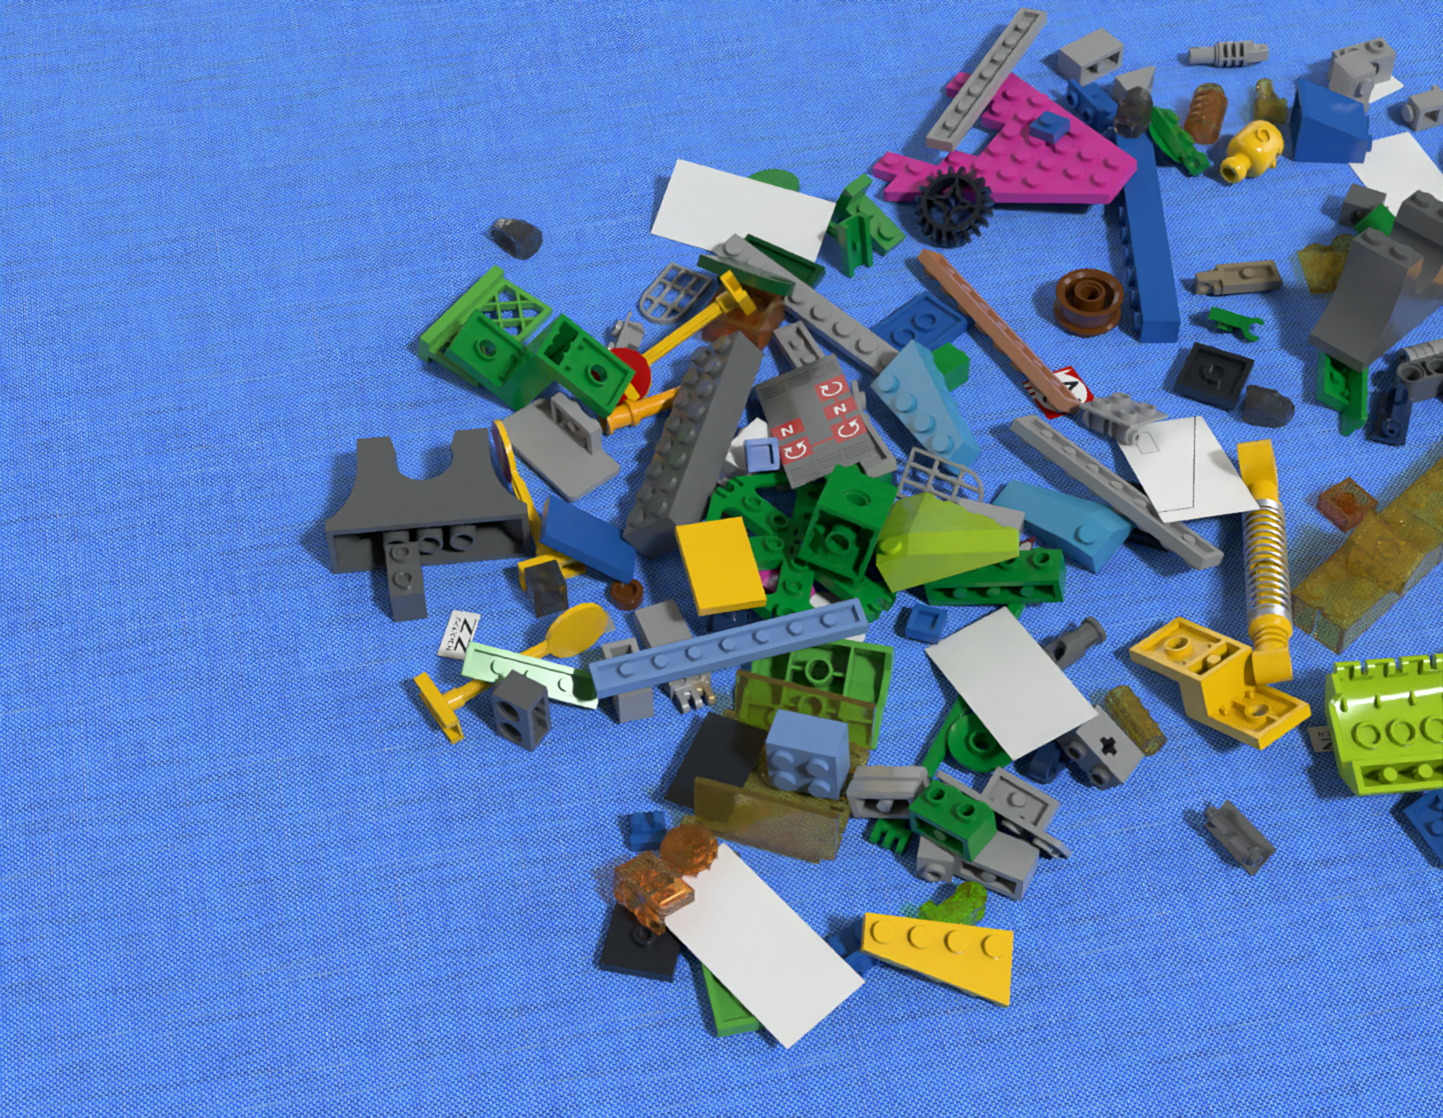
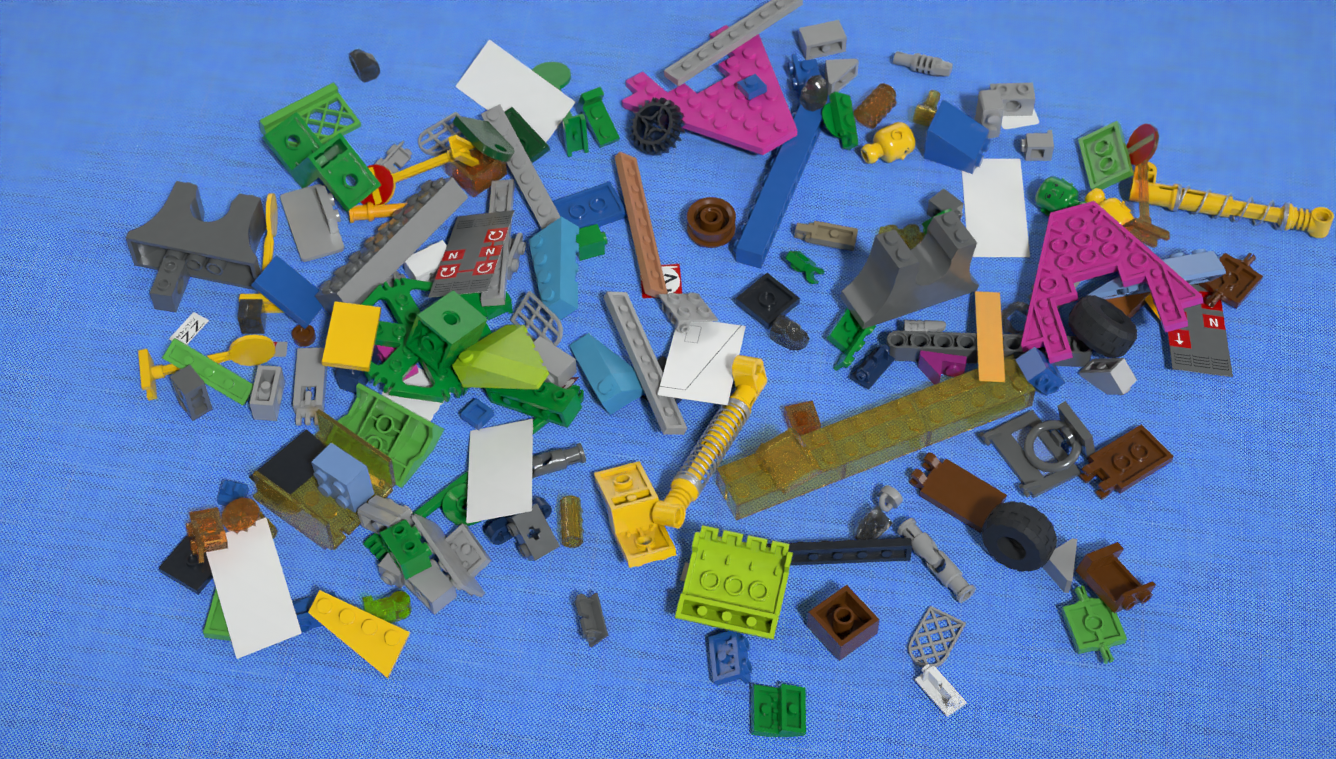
camera: 20 degrees right, 5 degrees up
(728, 648) = (329, 392): medium blue plate -> none
(762, 455) = (426, 267): plate -> none

